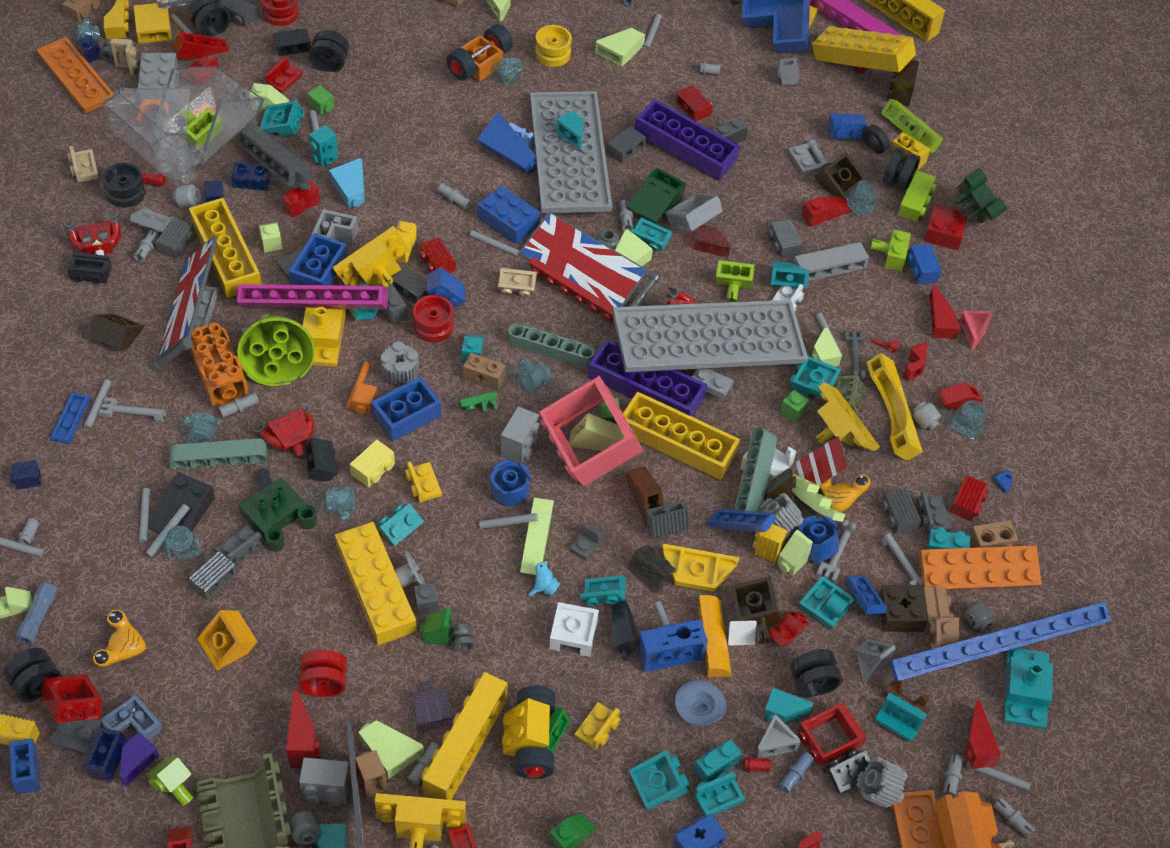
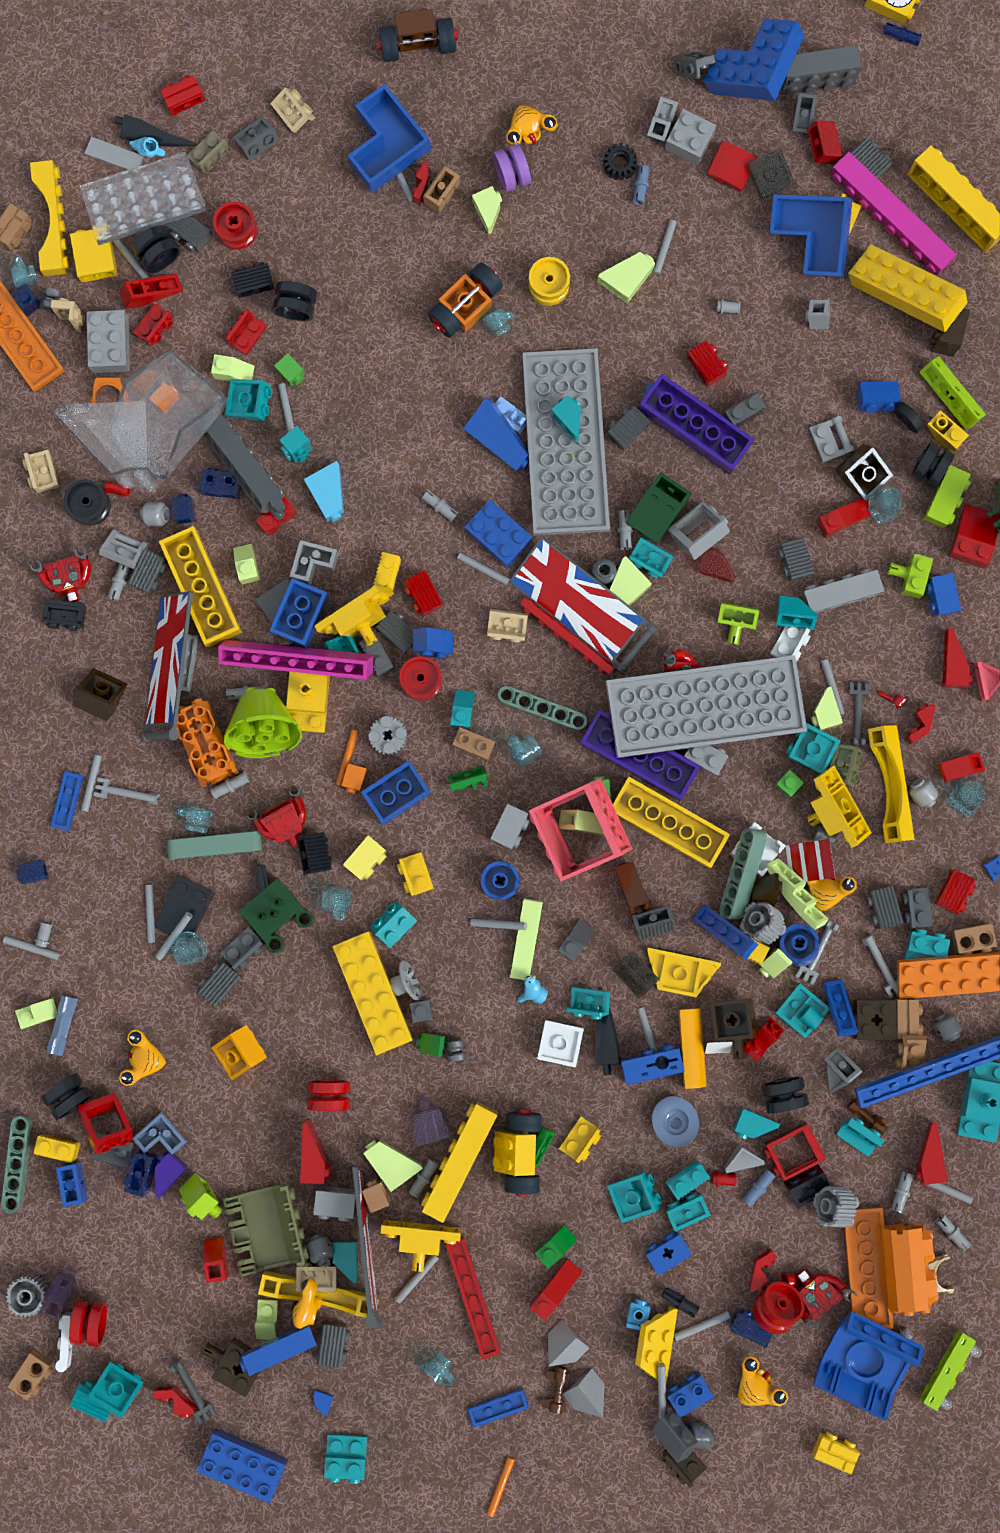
camera: 10 degrees right, 30 degrees up
(199, 127) = (162, 428): lime brick -> none

